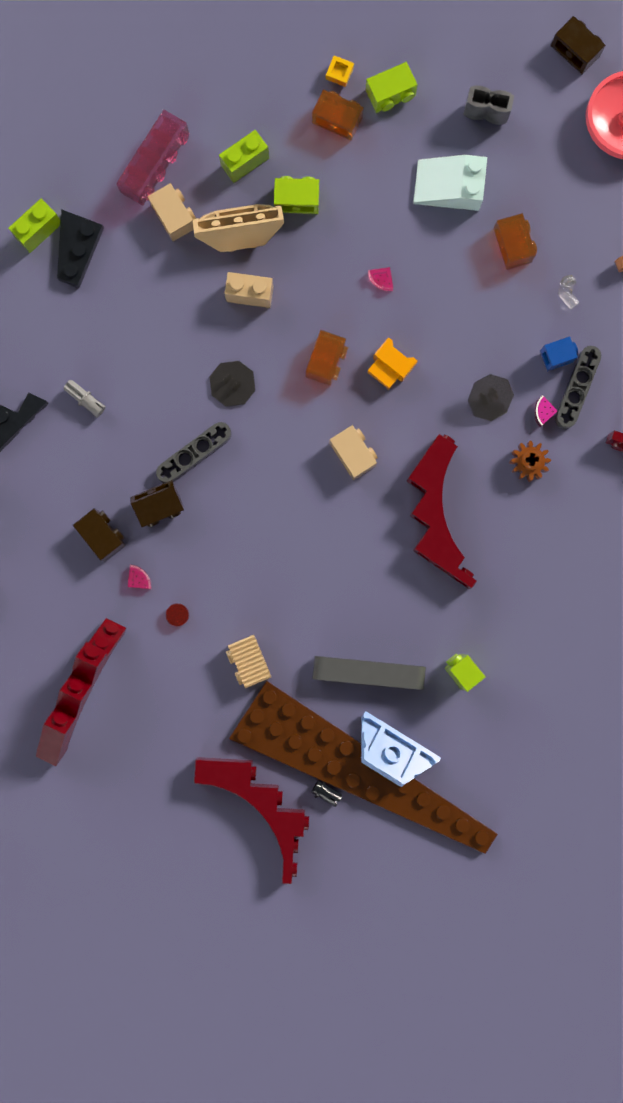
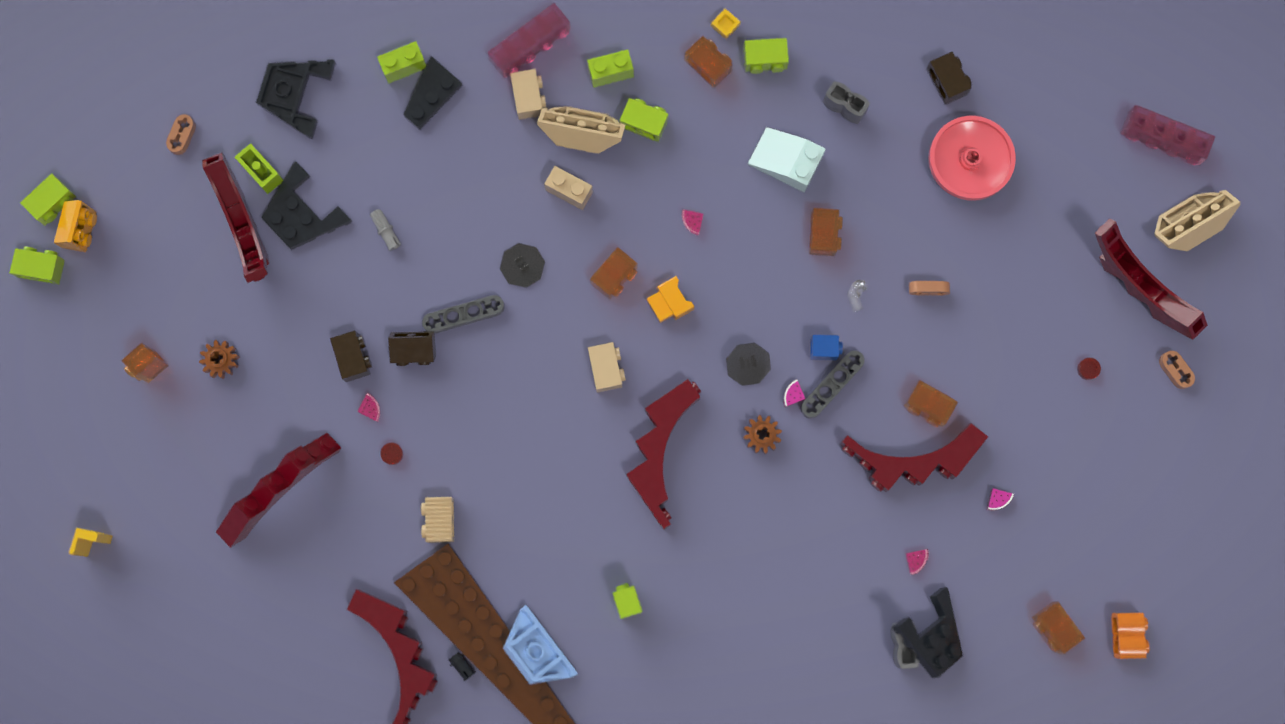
camera: 20 degrees right, 5 degrees down
(369, 672) = (542, 571): dark grey beam -> none

